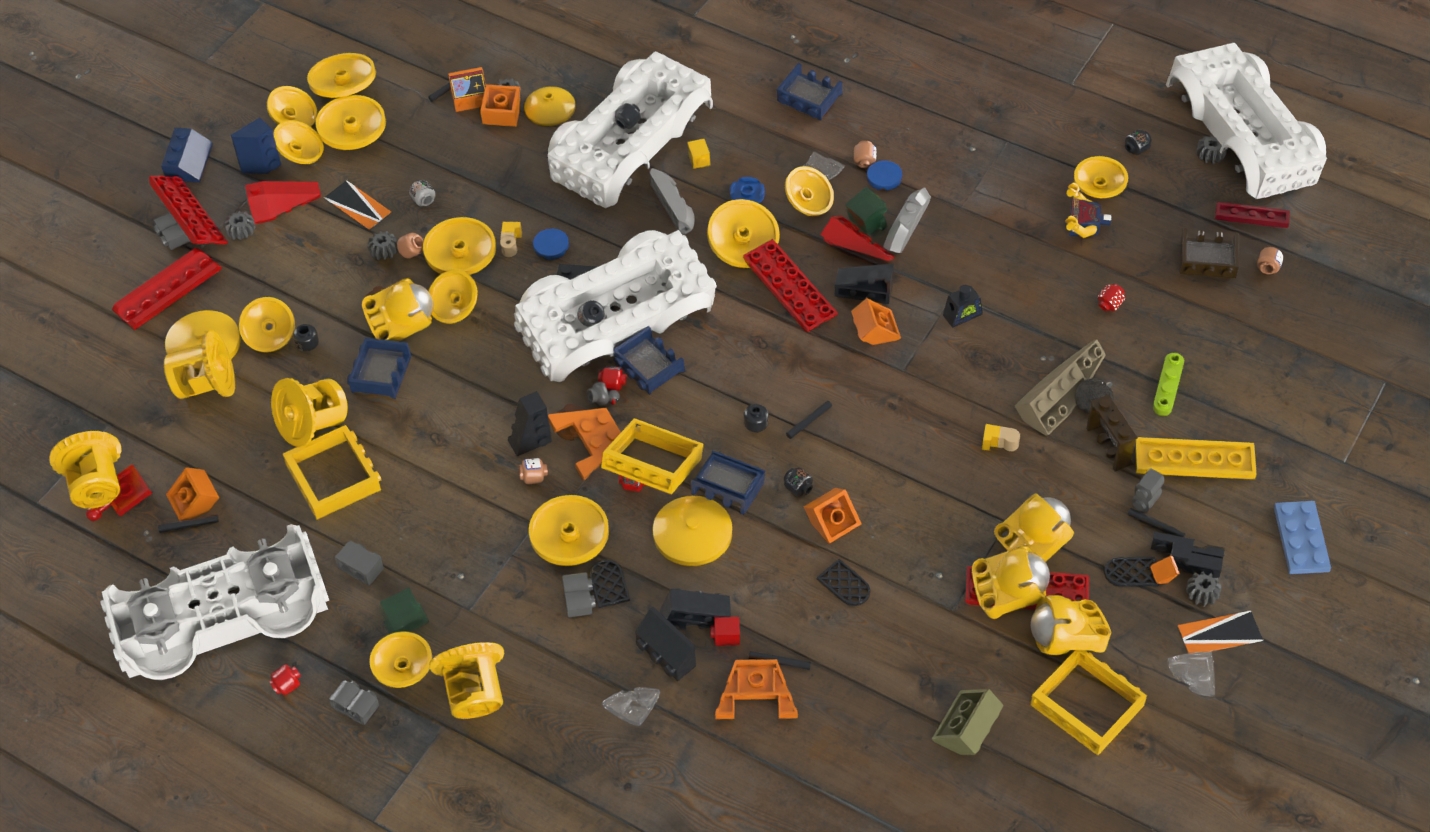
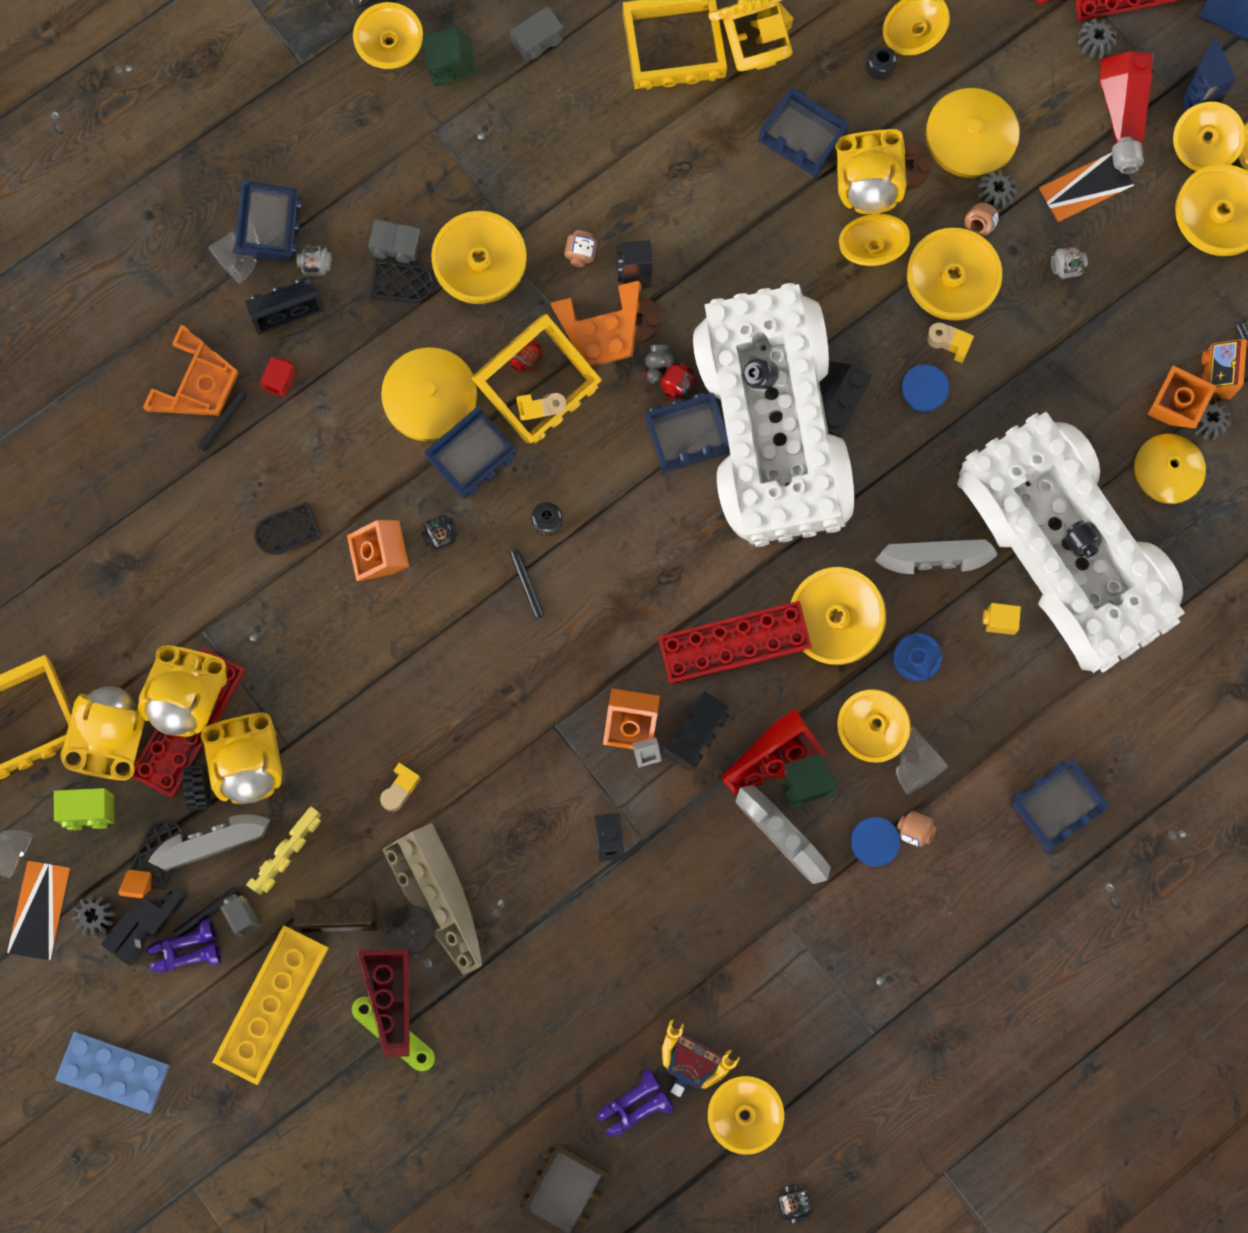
camera: 105 degrees right, 25 degrees up
(327, 183) = (1127, 155): none -> light grey head
(340, 276) = (972, 133): none -> yellow dish
(463, 685) = (323, 89): yellow piece -> none
(598, 682) = (266, 221): none -> window
(617, 644) = (314, 260): none -> light grey head
(675, 438) = (549, 405): none -> leg
(694, 608) = (315, 352): black wedge -> none
(893, 307) = (646, 752): none -> light grey tile
(968, 721) = (53, 578): olive slope -> none
(1073, 555) = (196, 787): none -> black tyre
(1092, 486) = (270, 868): none -> light yellow wing
(1107, 533) = (177, 853): none -> light grey brick
(1111, 297) = (548, 1028): red head -> none
(1131, 619) = (84, 808): none -> lime brick
(1143, 246) = (659, 1102): none -> dark purple piece
(1149, 381) = (387, 989): none -> dark red wedge
(1202, 528) = (205, 934): none -> dark purple piece

